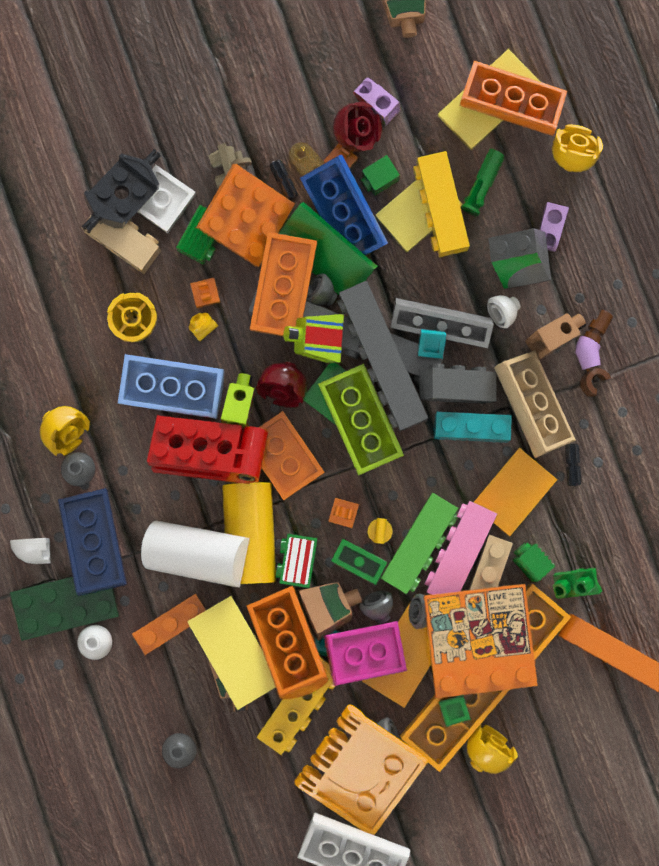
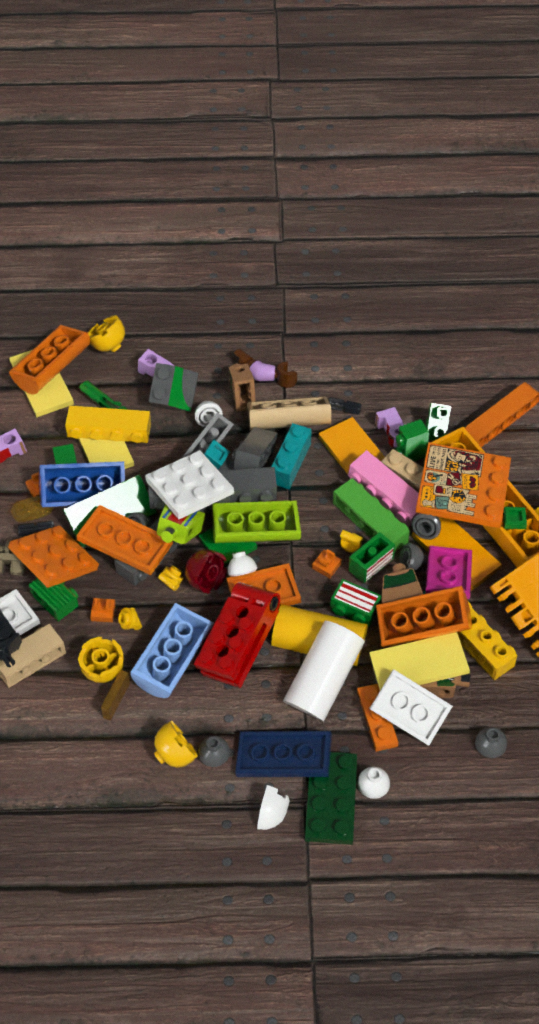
camera: 70 degrees left, 30 degrees down
(104, 346) = (115, 695): none -> pearl gold tile
(181, 658) = (411, 707): none -> white tile
(237, 411) = (206, 601): lime torso -> none
(269, 351) = (171, 577): none -> yellow plate
(302, 422) = (241, 564): none -> white brick
(357, 127) = (19, 462): dark red cylinder -> none
(365, 332) = (189, 484): none -> white plate
(558, 532) = (390, 421): none -> lavender leg

